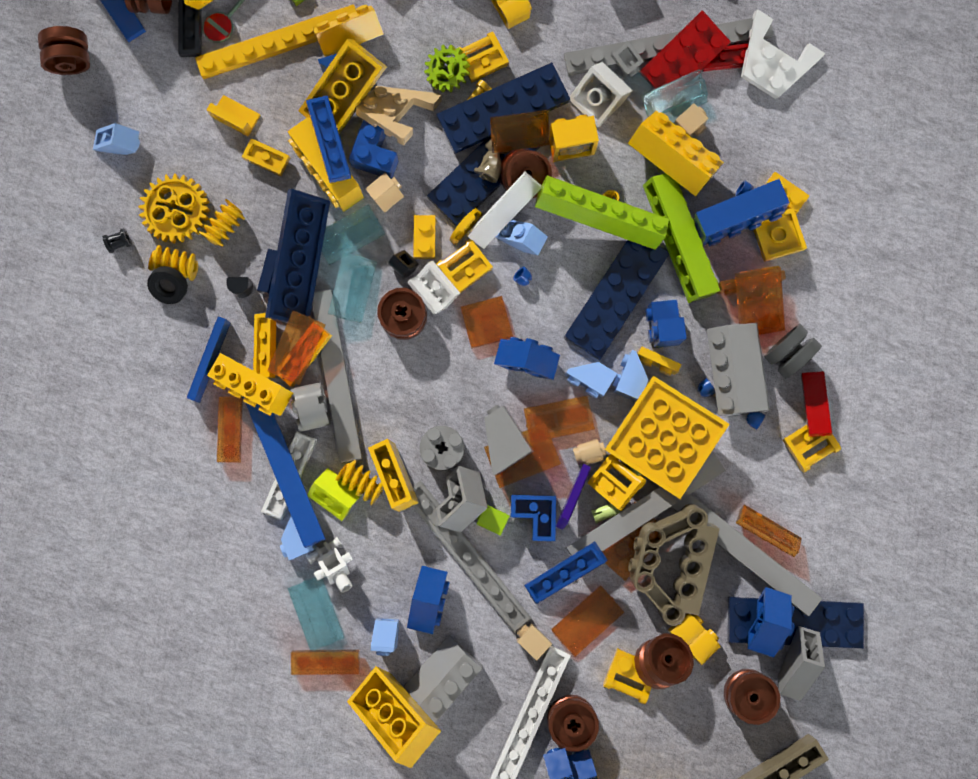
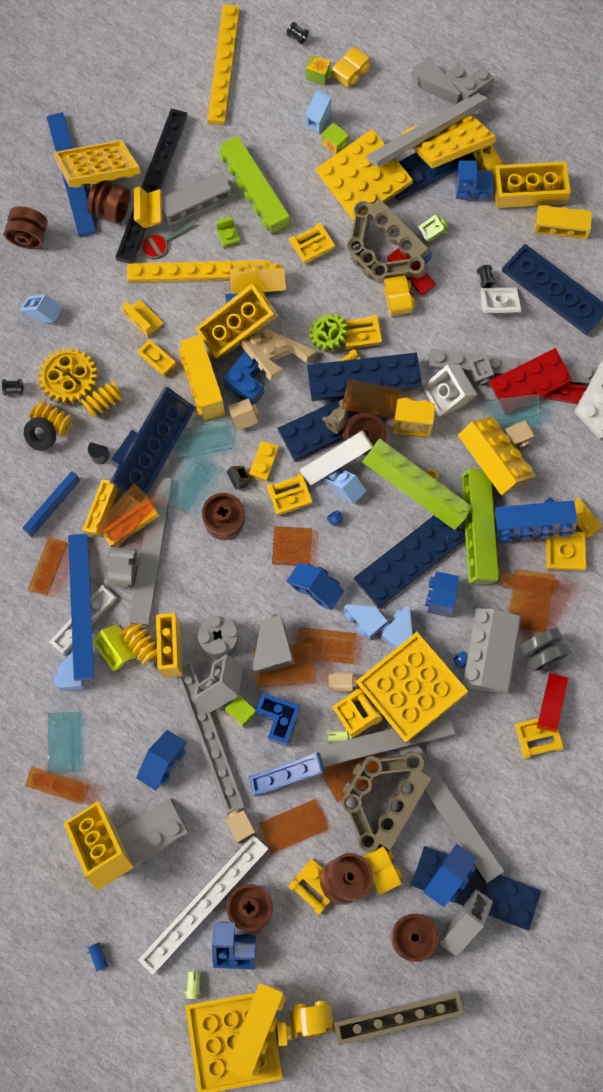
camera: 20 degrees right, 10 degrees down
(249, 384) = (78, 533): yellow brick -> none
(328, 139) = (210, 357): blue tile -> none
(332, 564) = (92, 704): white piece -> none
(385, 636) = (115, 778): light blue slope -> none
(434, 288) = (257, 504): white bracket -> none
(465, 225) = (300, 461): yellow tile -> none
(573, 497) = (314, 712): dark purple tile -> none
(665, 364) = (419, 618): yellow plate -> none
(755, 419) = (495, 699): blue hinge -> none
(769, 530) = (477, 799): clear orange plate -> none

